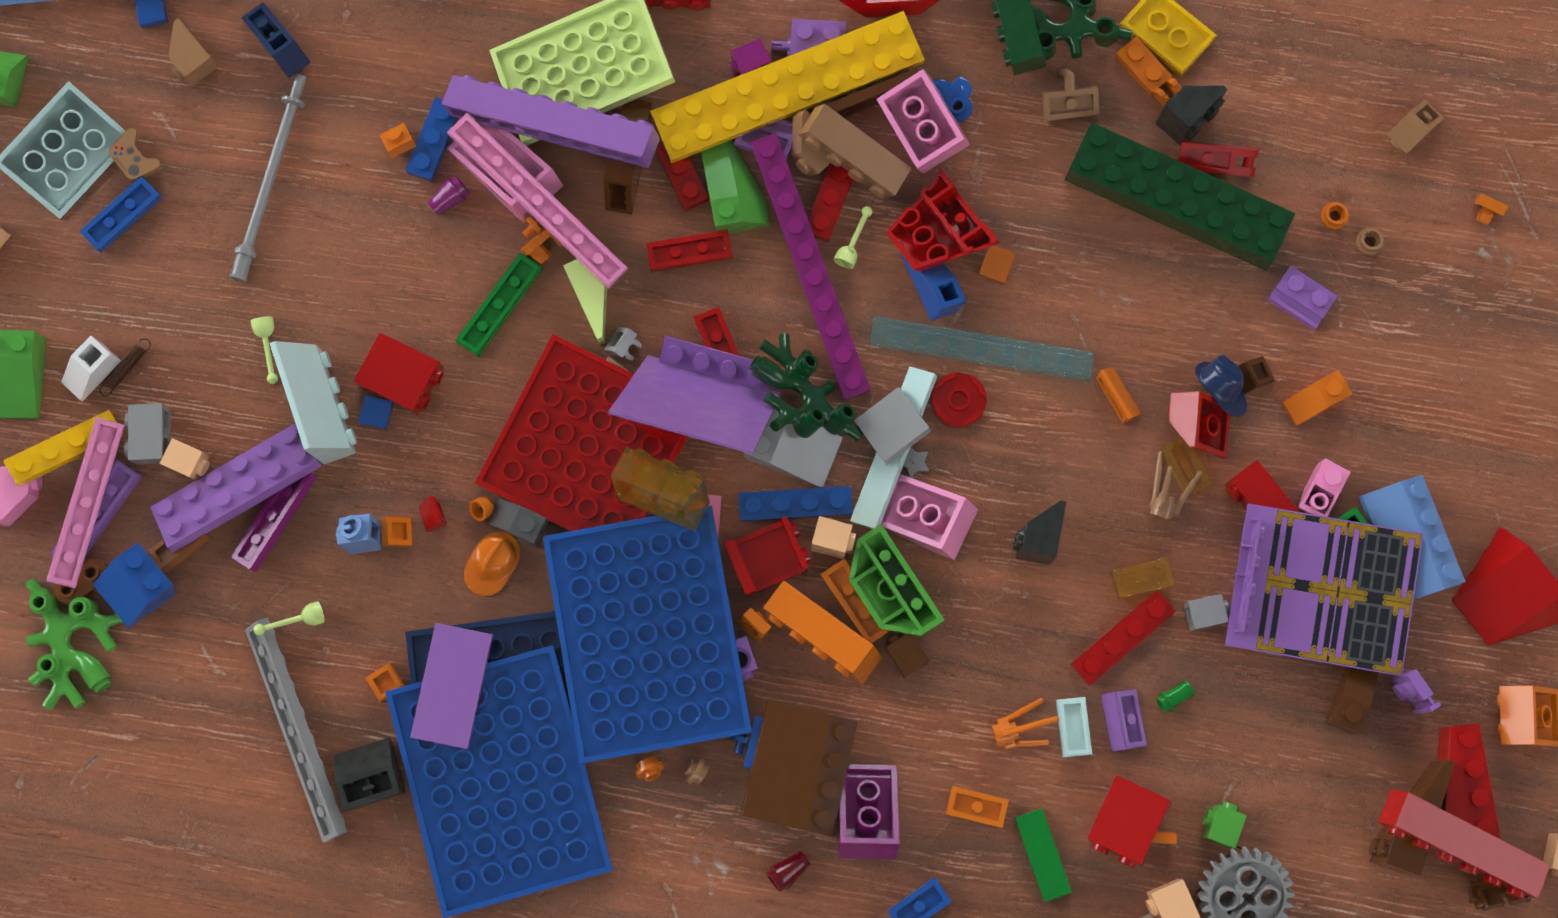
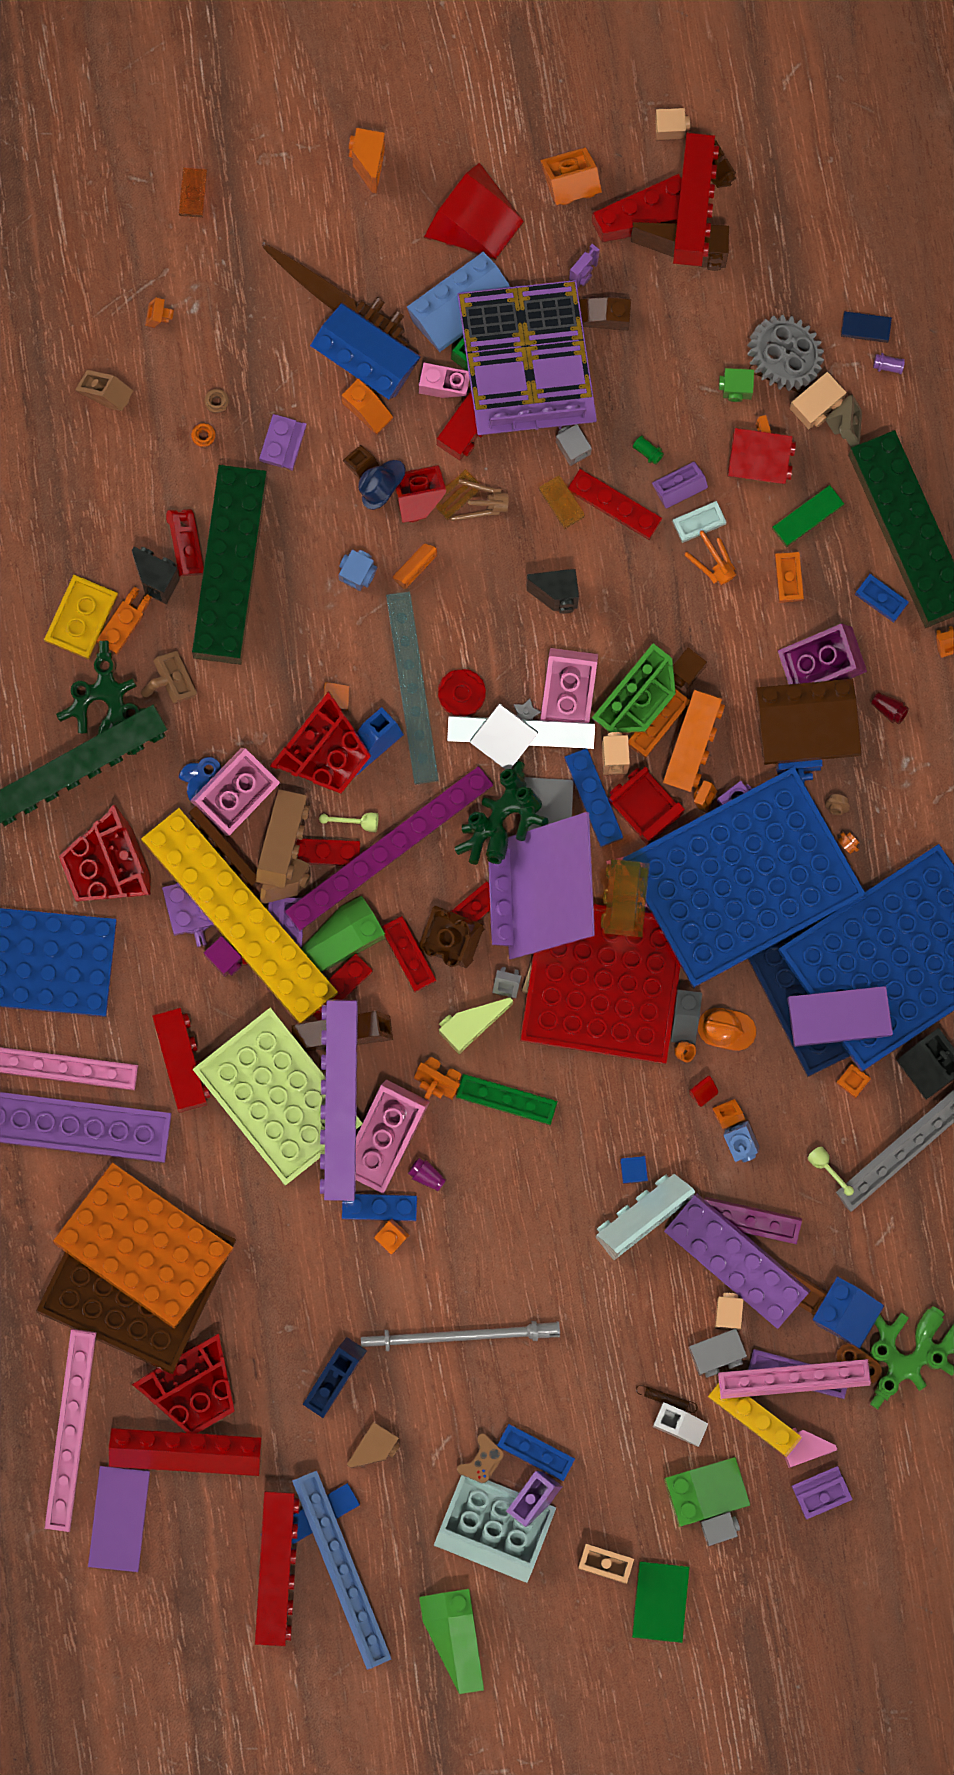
camera: 115 degrees left, 0 degrees up
(71, 194) = (534, 1498): none -> medium lavender slope
(263, 328) = (594, 1291): yellowish green hinge -> none
(399, 374) = (596, 1159): red panel -> none
(537, 201) = (414, 1086): bright pink tile -> none
(689, 298) = (451, 937): none -> reddish brown slope
(1132, 330) = (357, 569): none -> medium blue brick
(1381, 414) = (365, 351): none -> blue slope
(1434, 419) = (334, 297): none -> reddish brown piece

